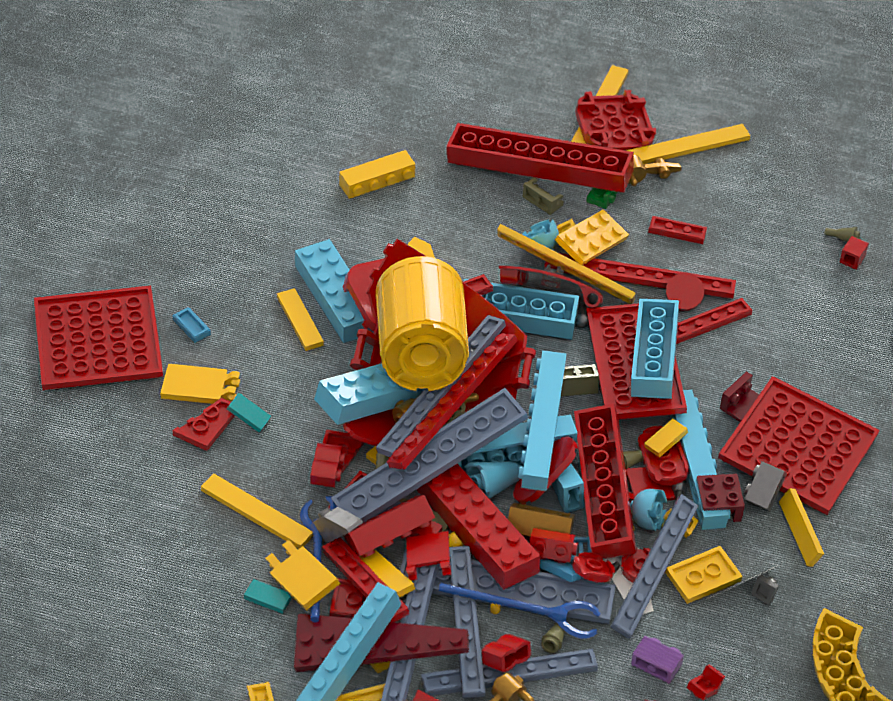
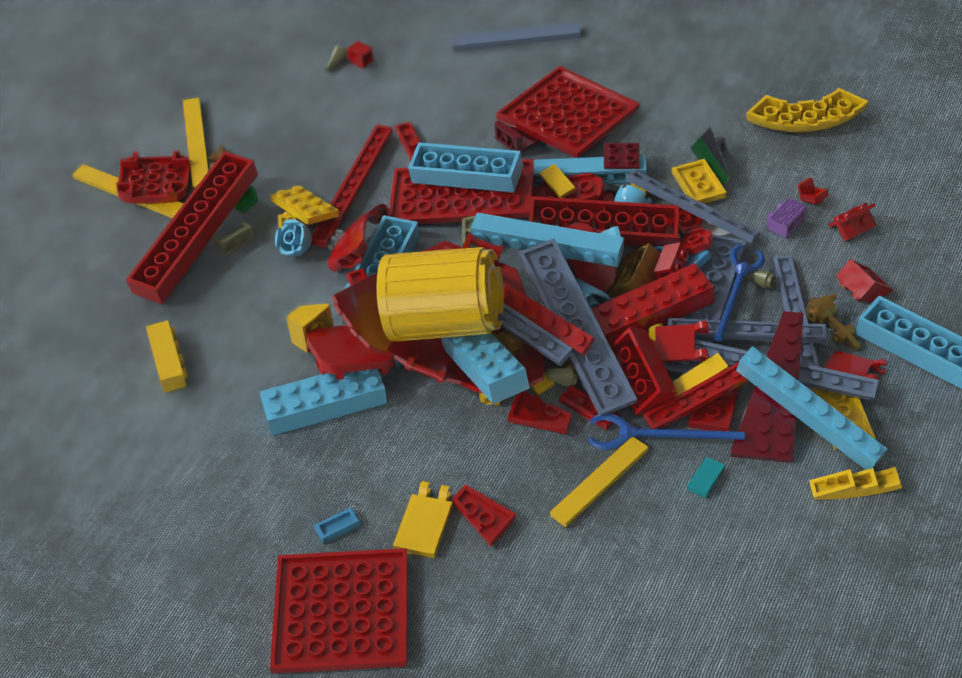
camera: 75 degrees left, 0 degrees up
(248, 412) = (475, 477): teal tile -> none
(300, 319) = (350, 433): yellow tile -> none
(302, 575) = (693, 441): yellow tile -> none
(326, 465) = (561, 413): red brick -> none
(335, 523) = (639, 406): flat silver slope -> none
(506, 652) = (780, 301): red brick -> none
(566, 264) = (336, 223): yellow tile -> none
(677, 230) = (300, 157): red tile -> none
(686, 289) = (383, 156): red tile -> none
(765, 485) = (616, 128): flat silver brick -> none
(801, 527) = (655, 121): yellow tile -> none

